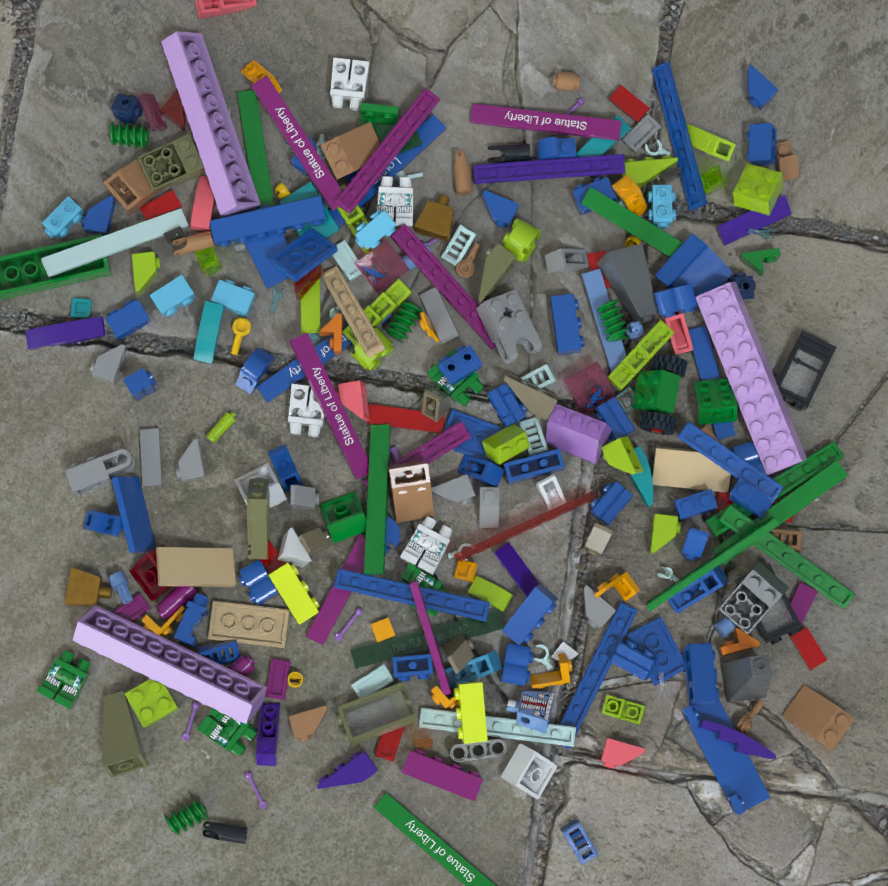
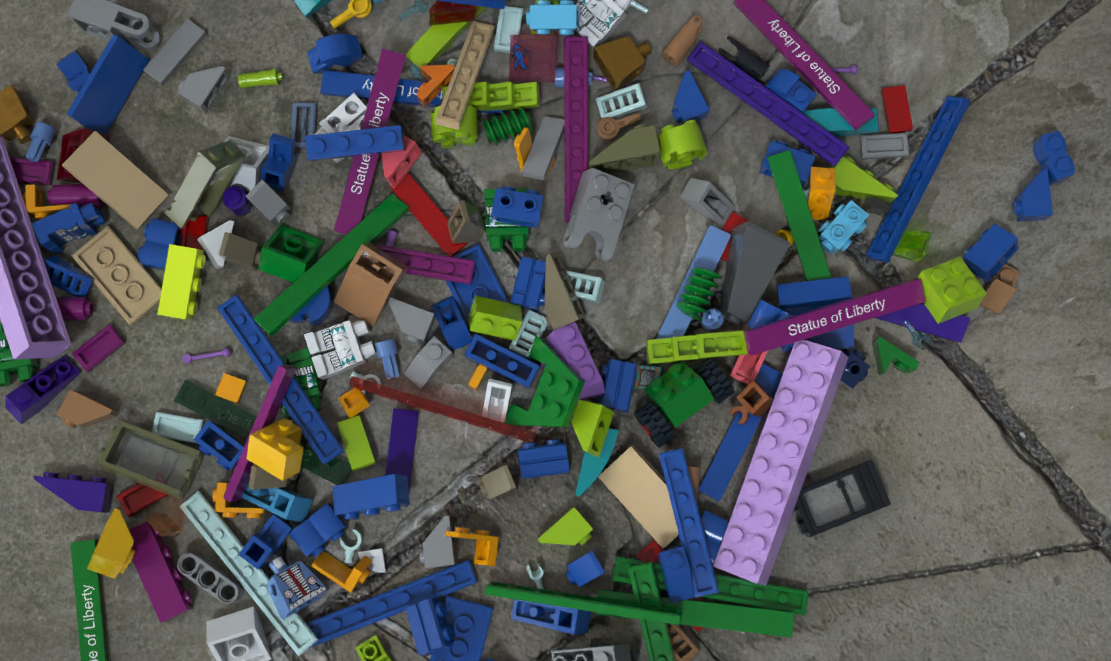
camera: 45 degrees right, 0 degrees up
(280, 513) = (236, 202): none -> dark purple brick
(291, 440) = (312, 129): none -> sand blue tile
(295, 676) = (114, 357): yellow hinge -> none
(327, 412) = (355, 143): none -> blue brick
(337, 598) = (211, 324): magenta tile -> none
(406, 781) = (113, 548): none -> yellow slope
(452, 635) = (277, 449): none -> yellow brick
(457, 523) = (386, 351): none -> medium blue piece
(471, 712) = (231, 536): neon yellow brick -> none
(493, 697) = (267, 543): none -> blue brick
(526, 487) = (478, 377): none -> light orange tile
(566, 81) = (856, 39): medium nougat brick -> none
(566, 324) = (653, 258): blue brick -> none
(585, 456) = (555, 394): none -> green wing
(589, 388) = (621, 335): clear pink slope -> none
(661, 151) = (888, 178): light aqua piece -> none
(695, 505) = (620, 532): blue brick -> none
(703, 356) = (754, 401): none -> dark orange brick
(706, 264) = (834, 316): none -> magenta tile
(711, 143) = (942, 210): lime slope -> none
(715, 401) = (727, 452): green bracket -> none
(744, 51) = (1052, 155): none -> blue brick

